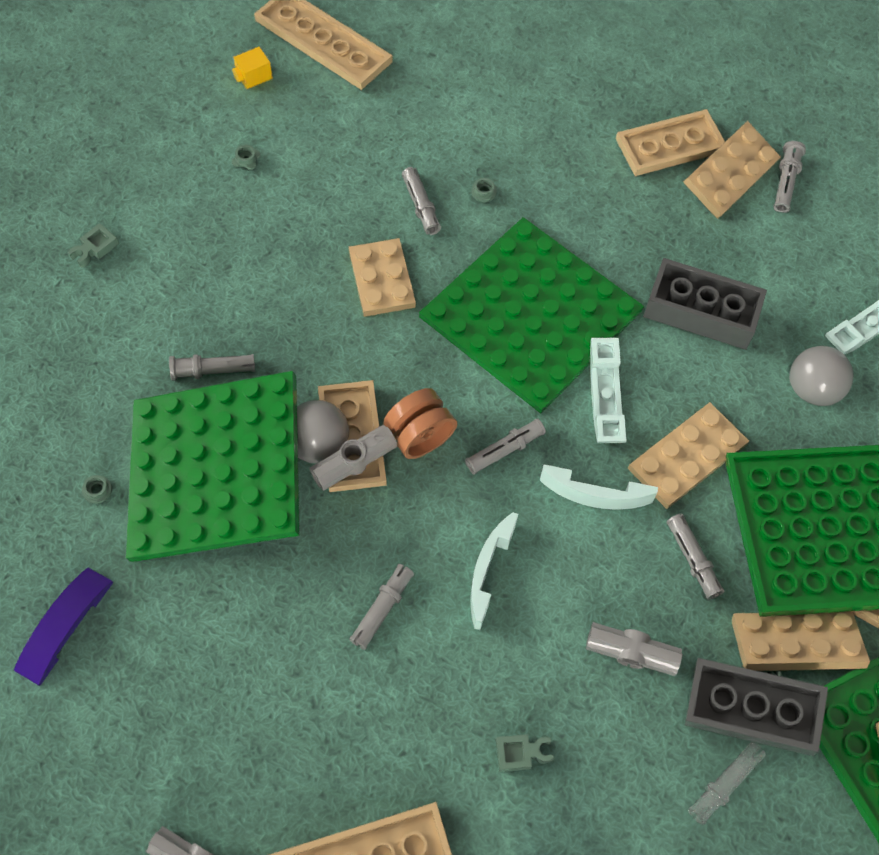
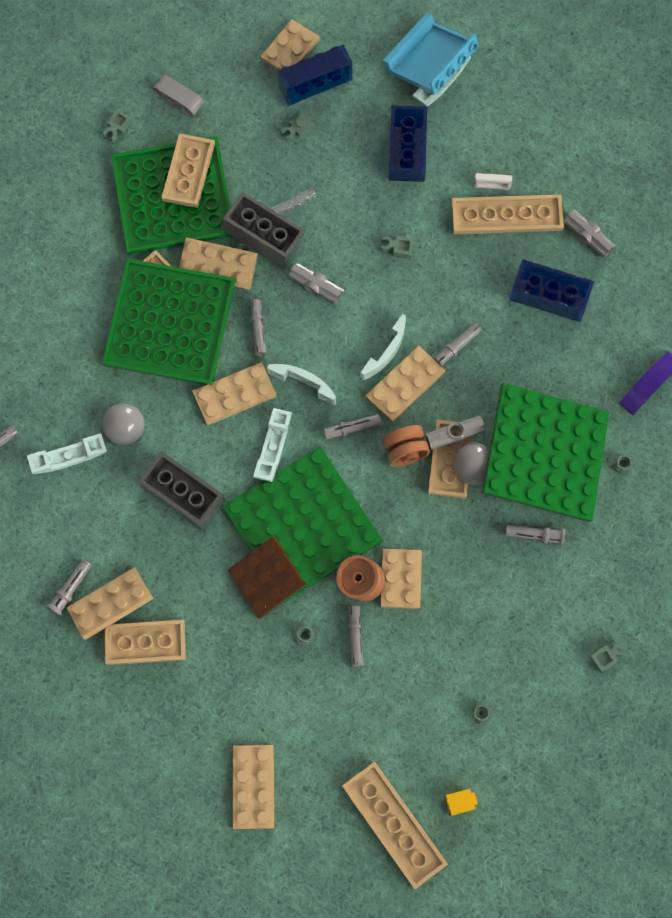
camera: 160 degrees left, 10 degrees up
(245, 729) = (551, 290): none -> clear blue brick
(433, 251) = (361, 568): none -> nougat wheel
(446, 529) = (405, 384): none -> tan plate
(490, 43) = (253, 787): none -> tan plate
(553, 232) = (266, 577): none -> reddish brown plate

